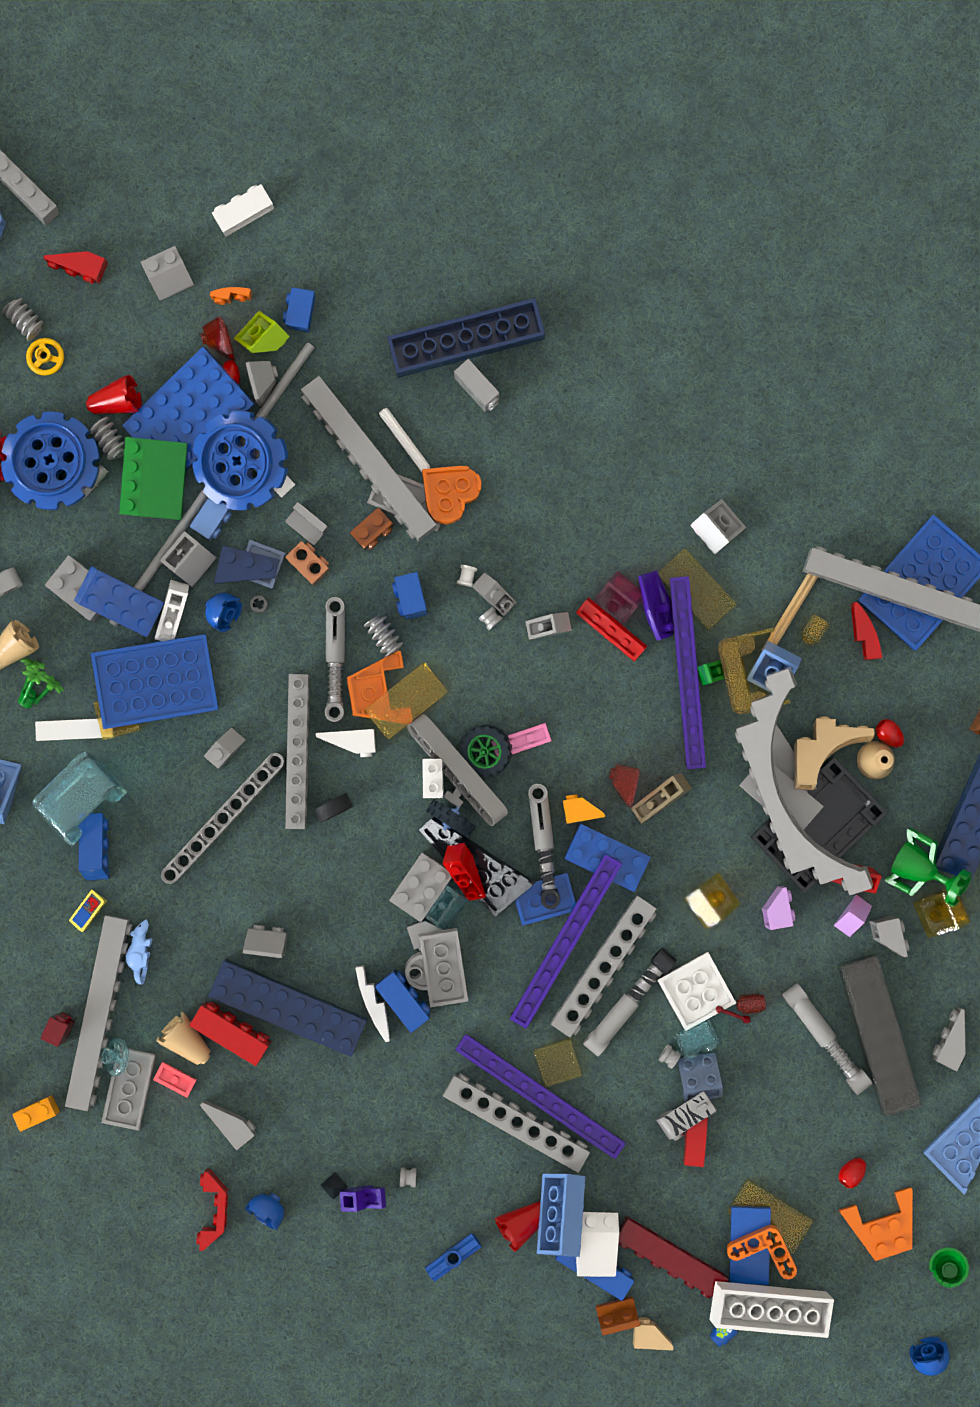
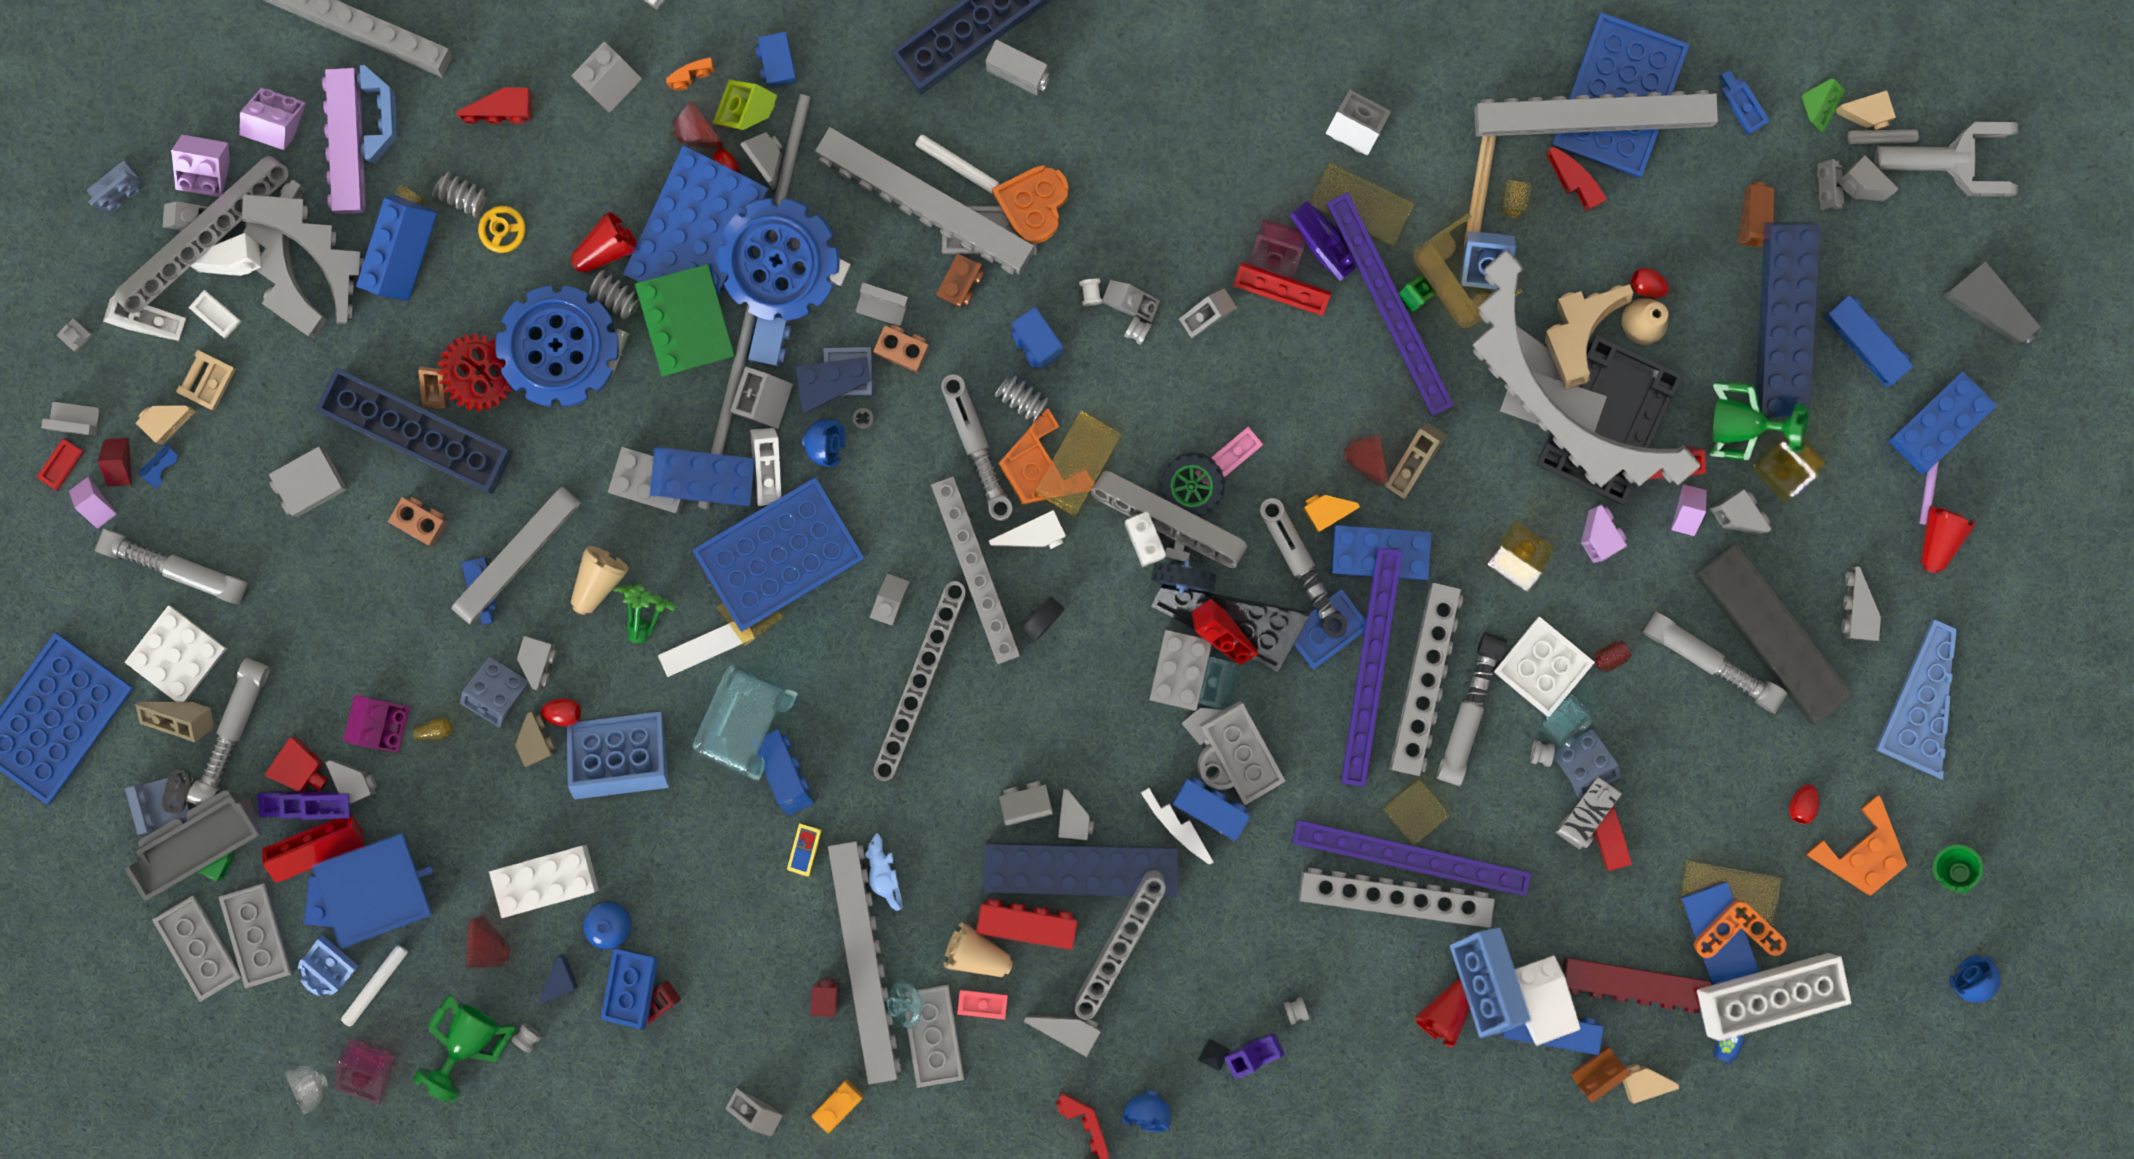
camera: 20 degrees left, 0 degrees up
(289, 1083) = (1119, 955): none -> light grey beam
(298, 967) = (1074, 818): none -> light grey slope
(443, 1264) = (1393, 1068): blue piece -> none
(746, 1019) = (1578, 676): dark red hinge -> none

